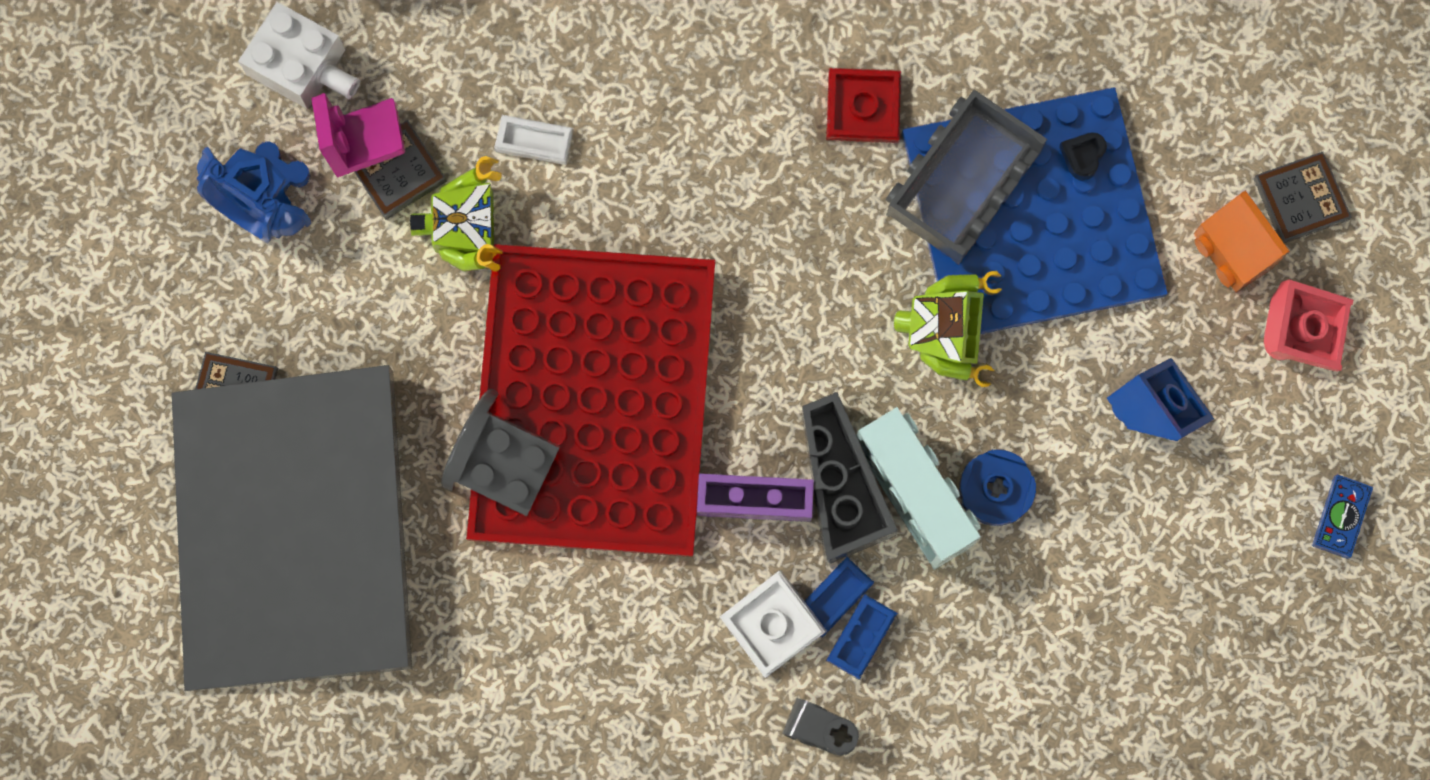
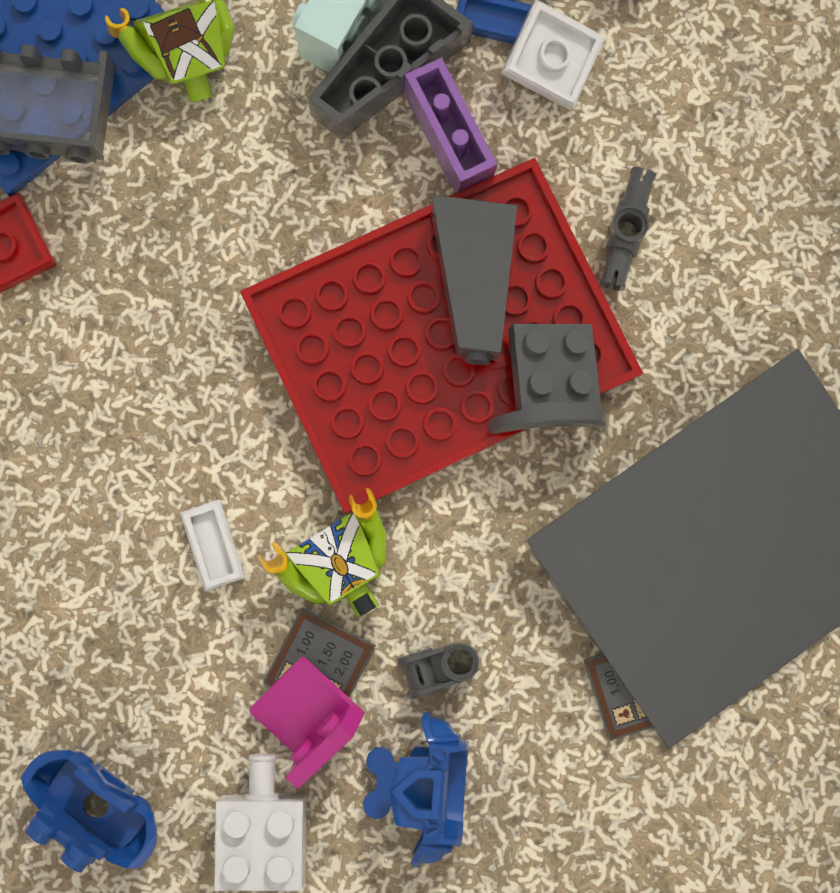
camera: 120 degrees left, 5 degrees up
(337, 247) = (435, 669): none -> dark grey piece
(576, 583) = (632, 210): none -> dark grey pin
(625, 448) = (475, 265): none -> dark grey slope

